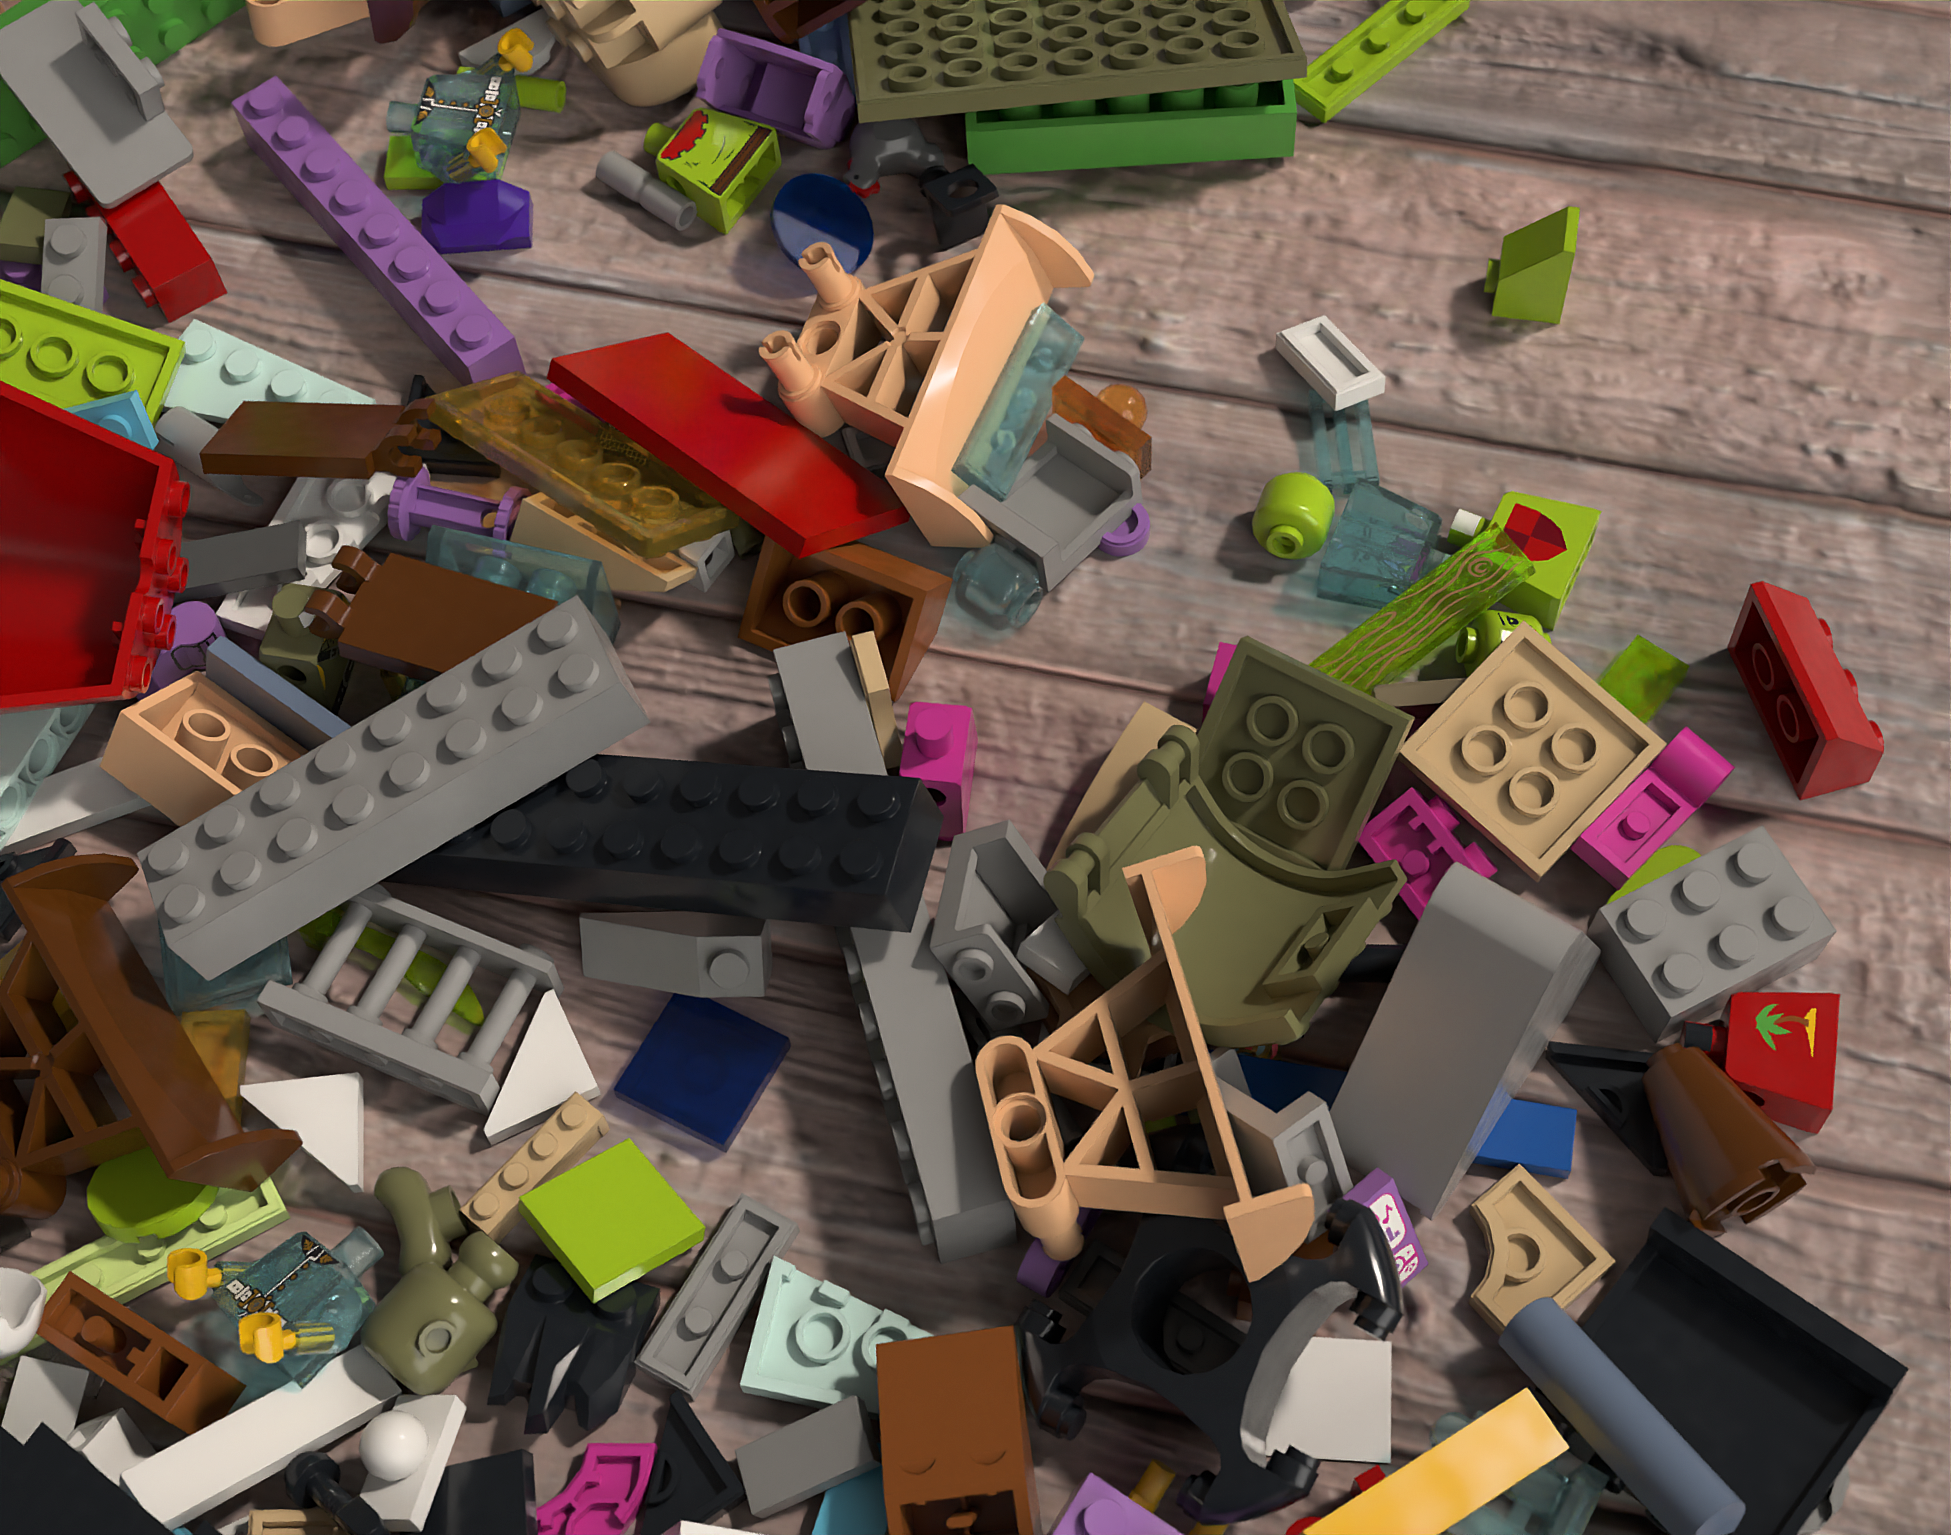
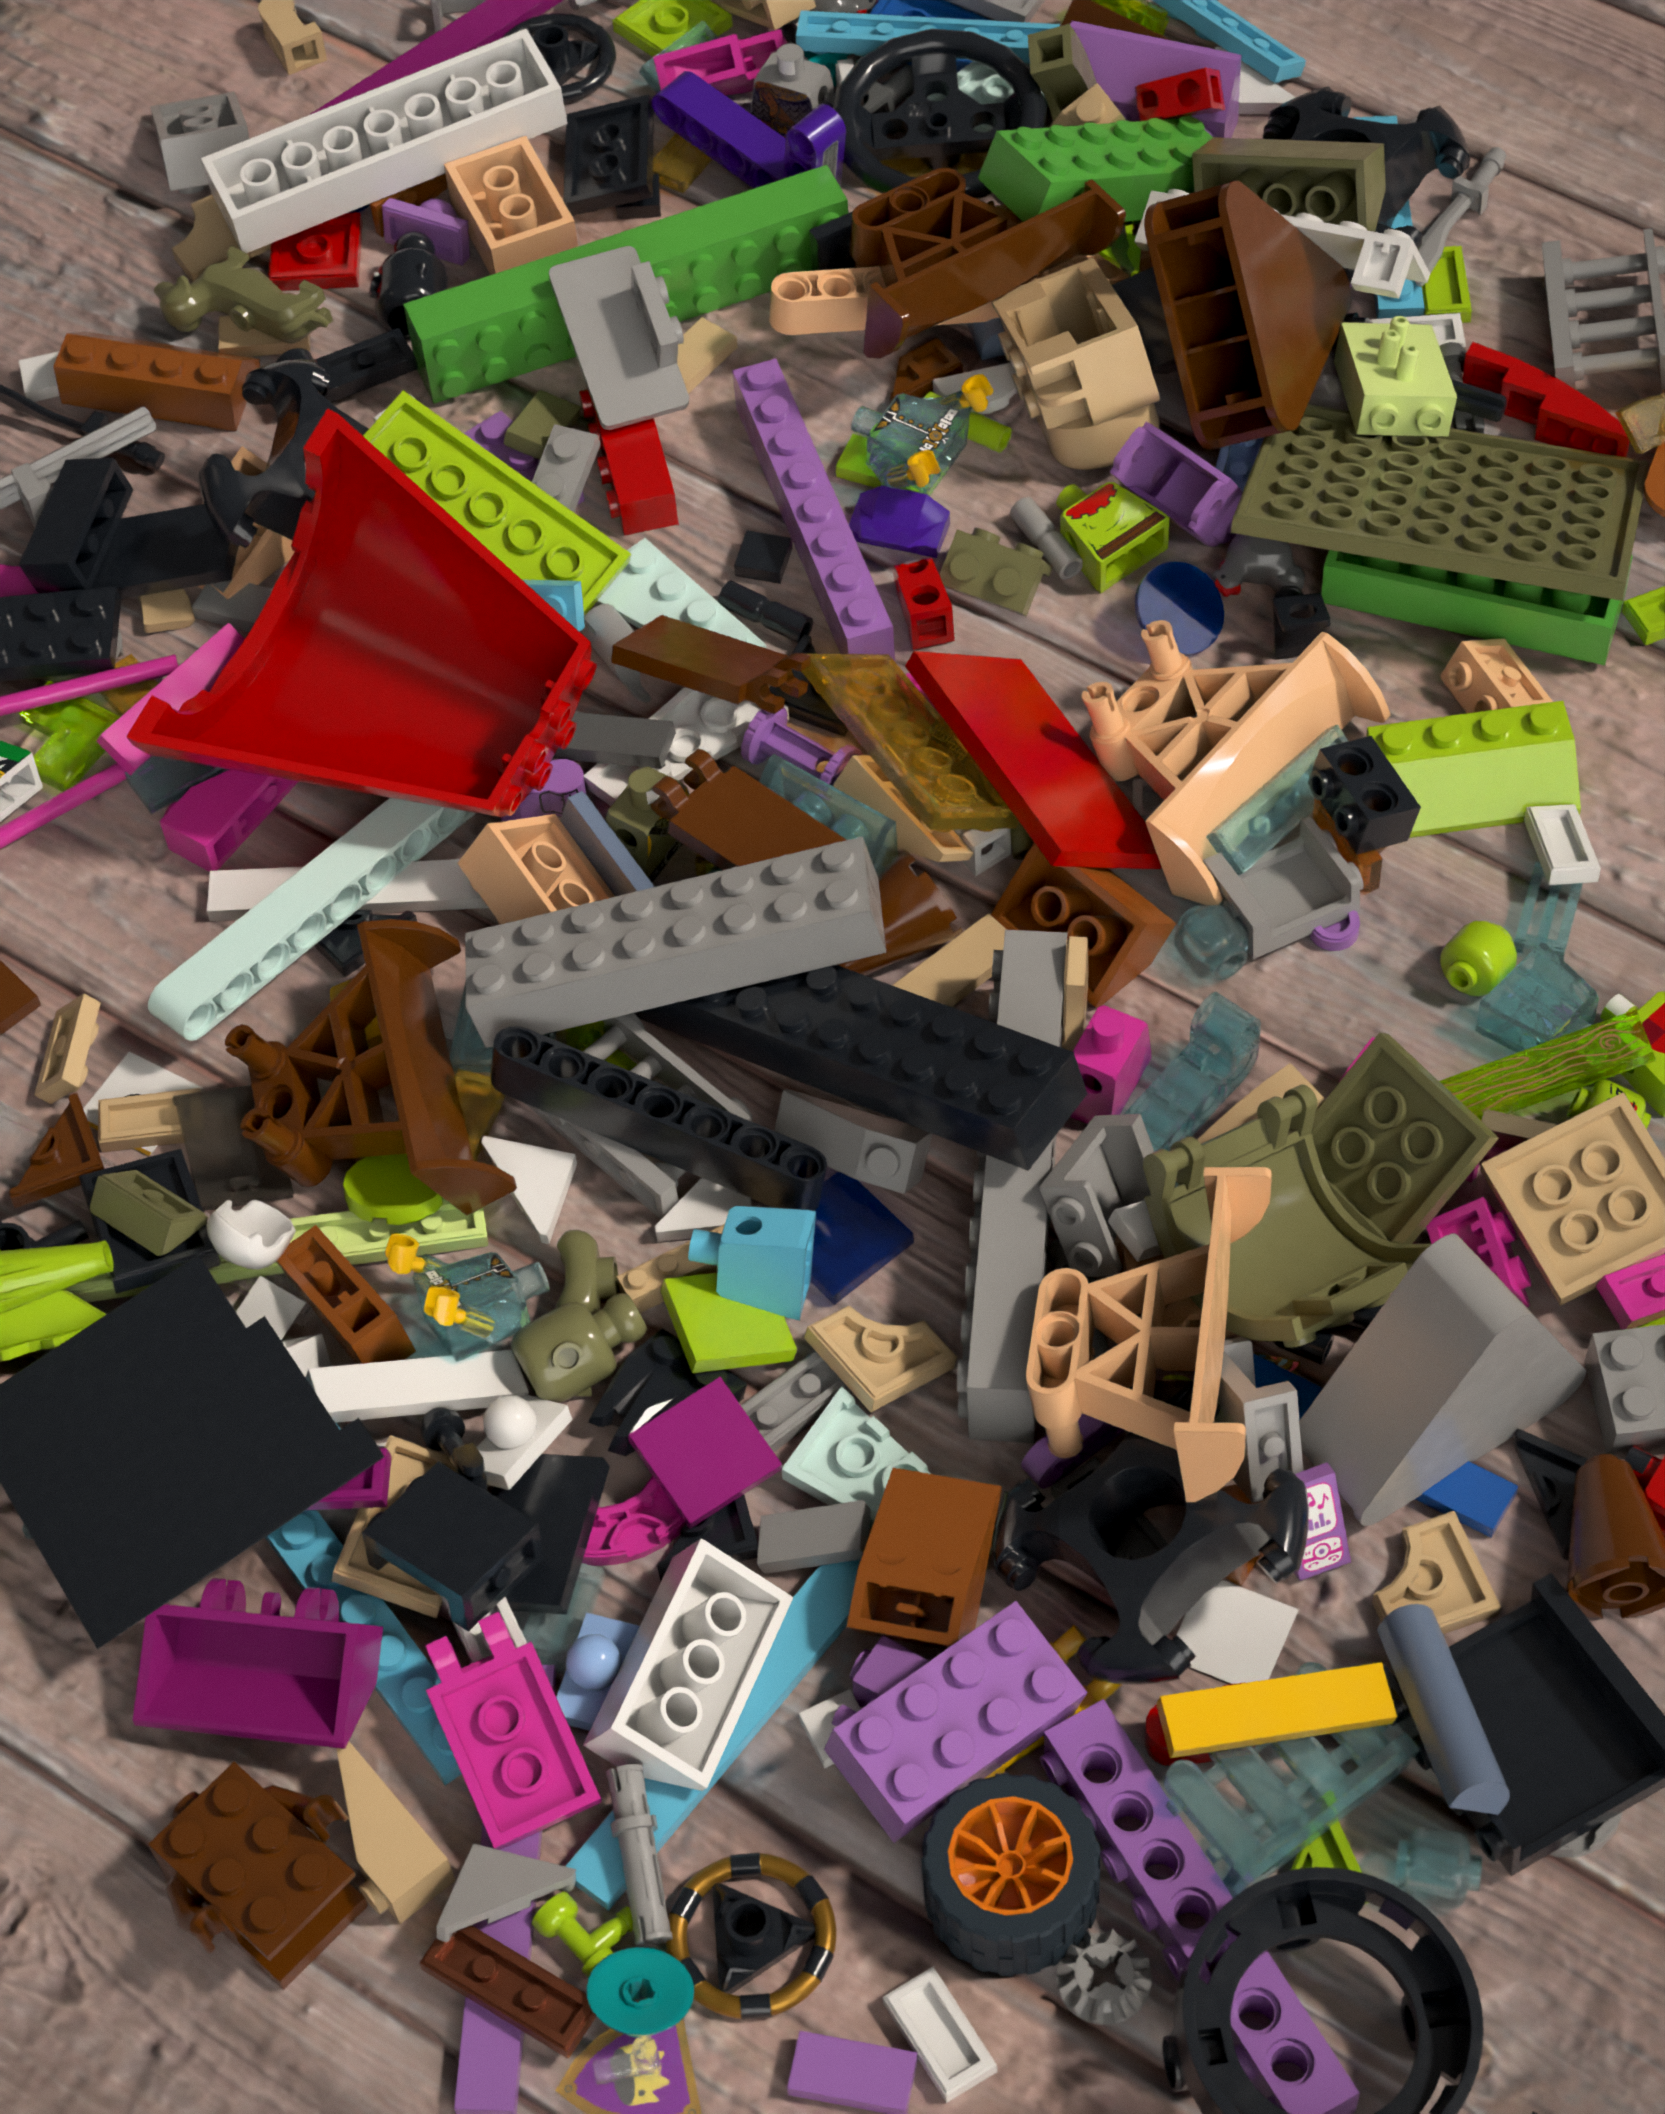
camera: 20 degrees right, 5 degrees down
(190, 91) = (703, 351): none -> tan tile
(337, 301) = (763, 557): none -> black tile
(355, 362) = (761, 610): none -> black piece
(441, 40) = (921, 366): none -> reddish brown tile
(443, 1005) = (657, 1120): none -> black beam
(537, 301) = (924, 603): none -> red leg
(601, 243) = (994, 572): none -> olive bracket
(625, 1133) = (761, 1257): none -> medium azure torso
(642, 1398) = (705, 1452): none -> magenta tile
(657, 657) = (912, 914): none -> reddish brown cone
(723, 704) = (958, 965): none -> tan tile
(803, 1205) = (877, 1358): none -> tan tile
(1046, 745) = (1203, 1075): none -> clear light blue beam
(1107, 372) = (1363, 795): none -> black brick
(1190, 213) = (1490, 677): none -> light nougat bracket
(1202, 308) = (1483, 765): none -> lime slope

